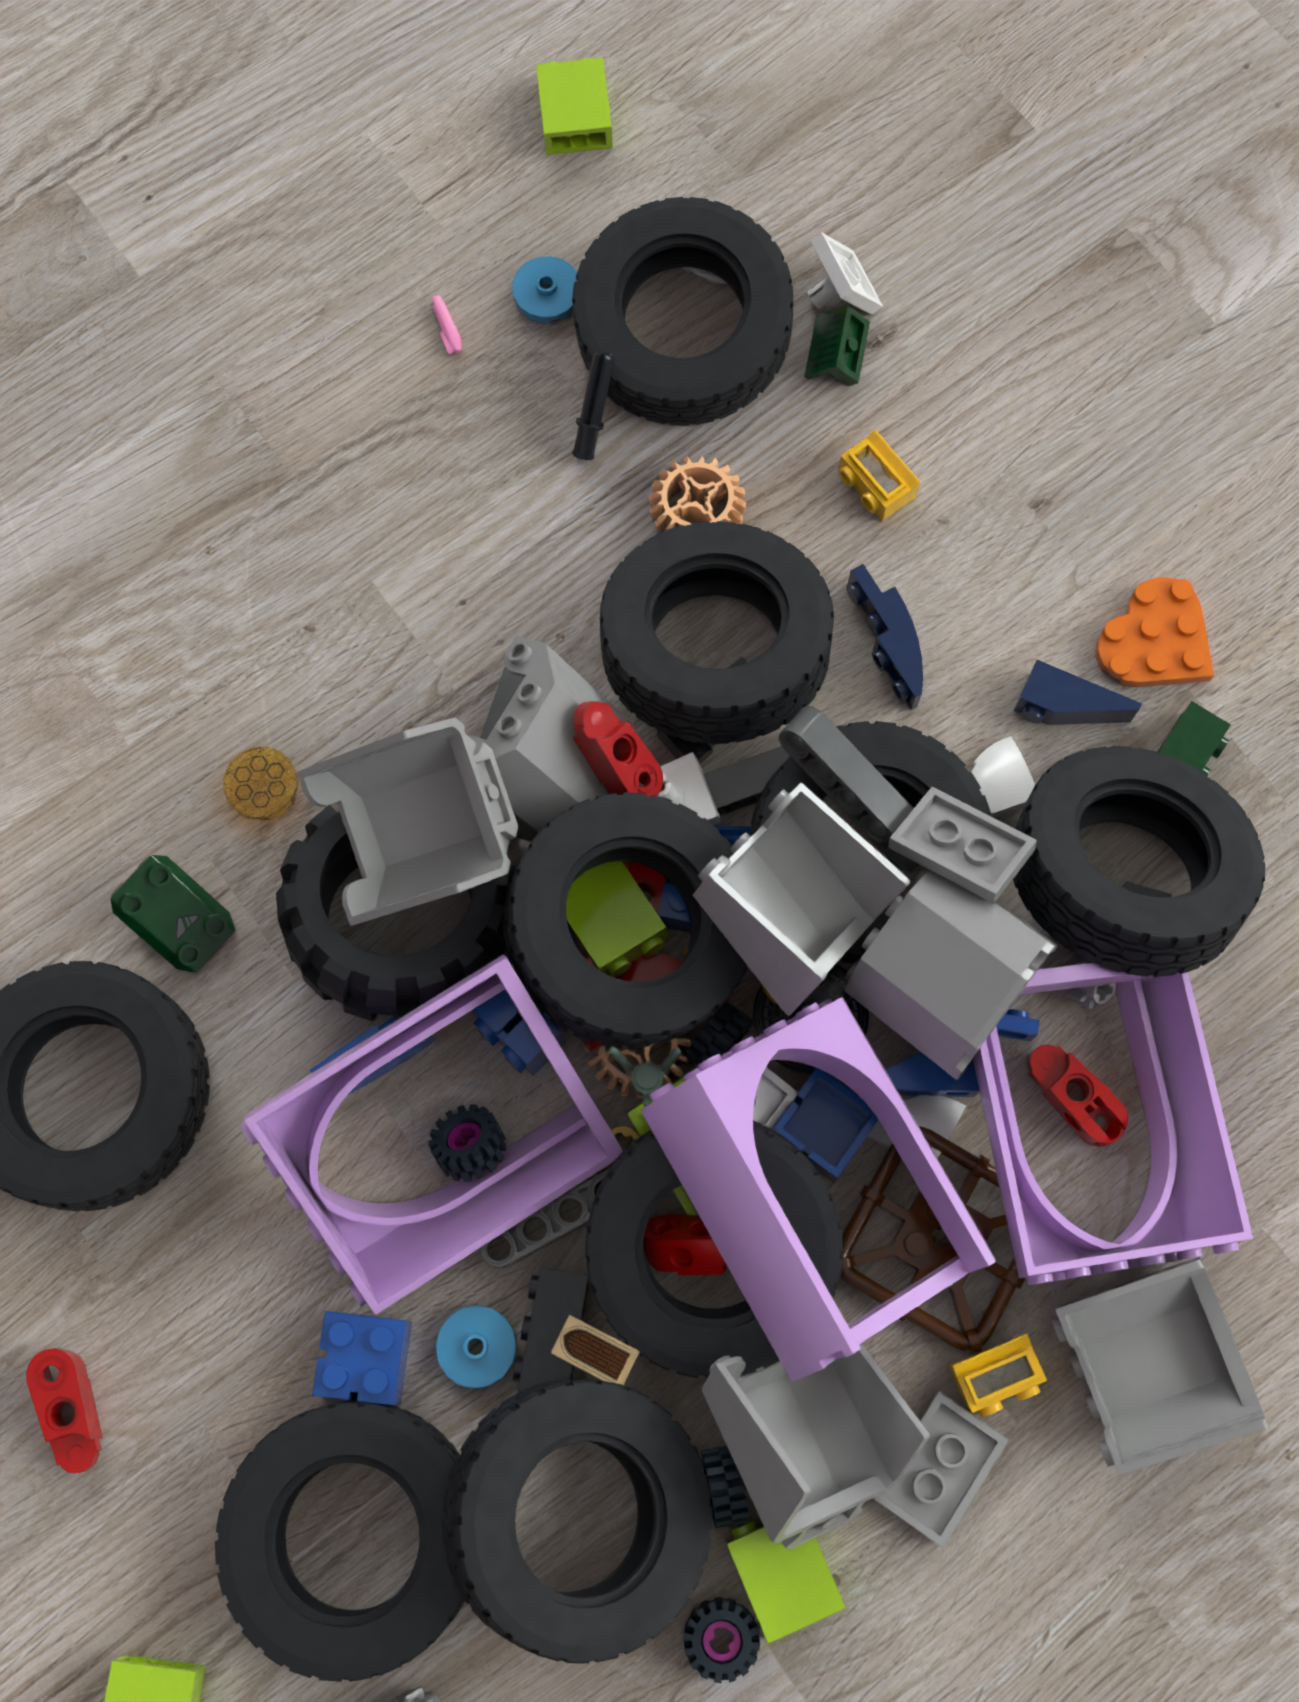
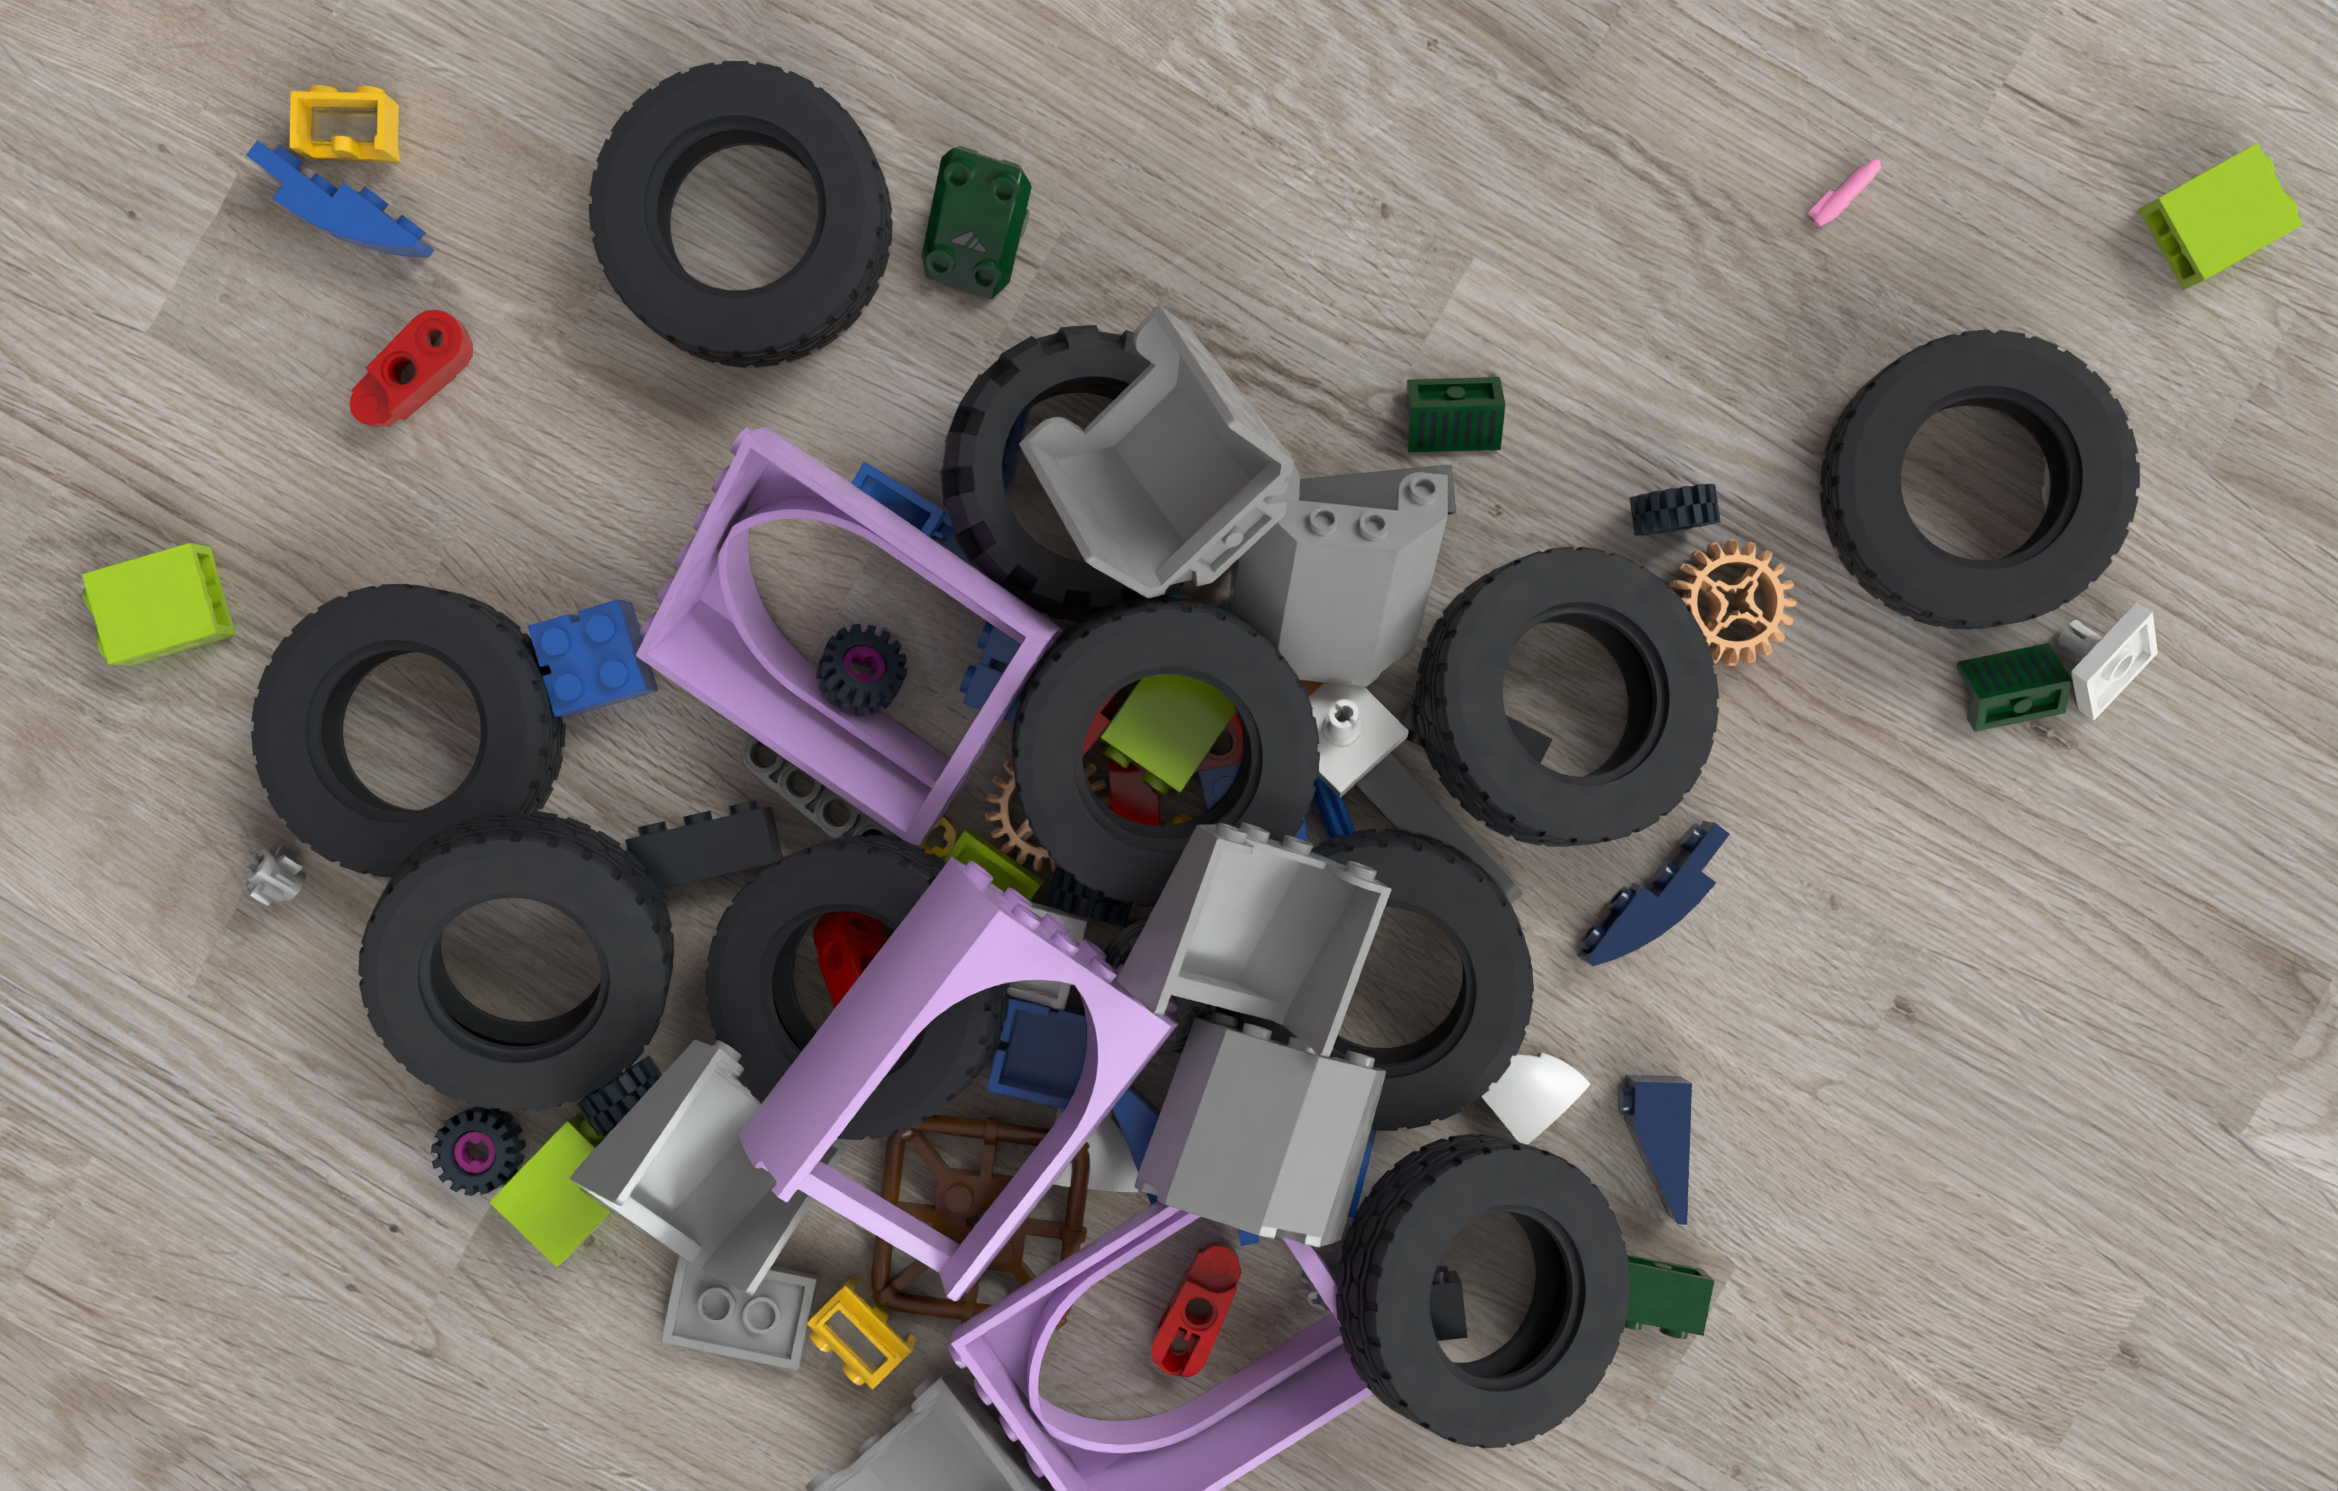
camera: 65 degrees right, 15 degrees up
(261, 783) = (1172, 245): clear yellow tile -> none
(478, 635) = (1455, 414): none -> dark green panel
(497, 1352) = (683, 769): dark azure plate -> none
(540, 303) = (1922, 299): dark azure plate -> none
(593, 406) = (1782, 429): black axle -> none
(595, 1351) = (693, 907): tile -> none
(613, 511) = (1675, 509): none -> black bush
(615, 751) = (1353, 653): red piece -> none
(646, 1076) = (1007, 839): sand green plant -> none
(847, 779) = (1428, 946): dark grey beam -> none
(878, 476) = (1857, 804): yellow window -> none
(962, 844) = (1404, 1095): light grey plate -> none
(1158, 638) = (1786, 1211): orange plate -> none

